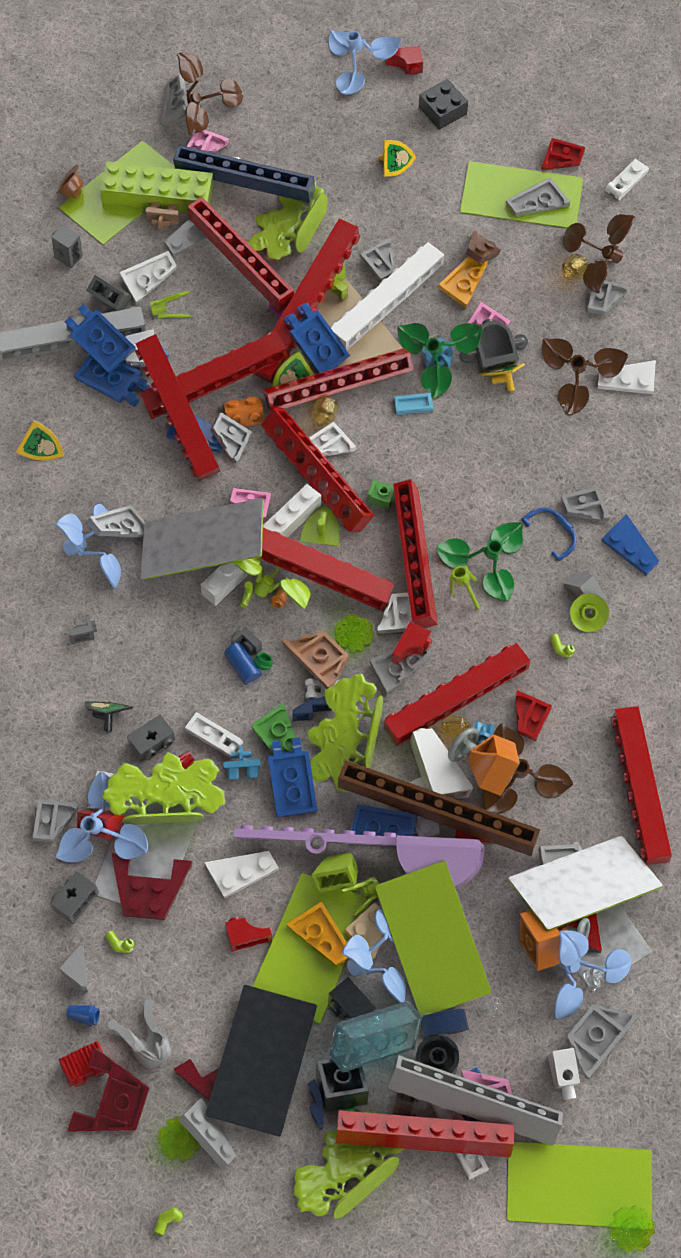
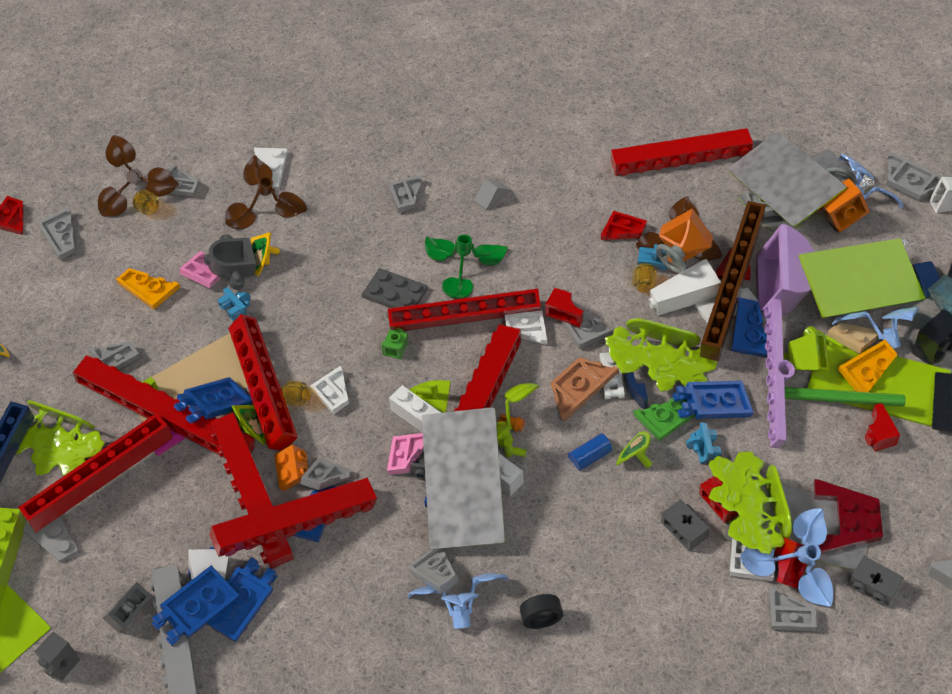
camera: 85 degrees left, 10 degrees down
(40, 443) = (328, 664): shield -> none
(69, 606) = (541, 611): none -> black tyre
(83, 633) = (567, 599): dark grey bracket -> none
(105, 711) = (658, 567): black shield -> none
(117, 945) = (914, 539): lime arm -> none
(147, 275) = (103, 573): white wing -> none
(158, 306) = (149, 558): lime plant -> none
(162, 217) = (27, 563): medium nougat hips -> none
(213, 734) = (673, 472): white plate -> none
(238, 702) = (637, 447): none -> lime shield
(240, 871) = (815, 441): white wing -> none
(249, 640) = (565, 446): dark grey bracket -> none
(263, 661) = (587, 432): green plate -> none
(286, 903) = (844, 396): none -> bright green axle
(325, 473) = (308, 428): red brick -> none
(353, 633) = (550, 360): clear neon green plant -> none
(387, 295) = (159, 345): white brick -> none
(413, 403) = (289, 325): medium azure tile -> none
(416, 335) = (262, 305): green plant -> none
(452, 496) = (394, 290): none -> dark grey plate
(457, 693) = (606, 275): red brick -> none
(461, 576) = (494, 268): lime plant -> none
(481, 249) = (114, 272): reddish brown wing -> none
(491, 185) = (36, 265): lime piece -> none
(562, 650) = (553, 210): lime arm -> none
(563, 521) = (425, 208): blue piece -> none
(599, 613) = (518, 186): lime dish -> none
(627, 179) = (47, 170): white plate -> none
(631, 546) = (445, 164): blue wing -> none

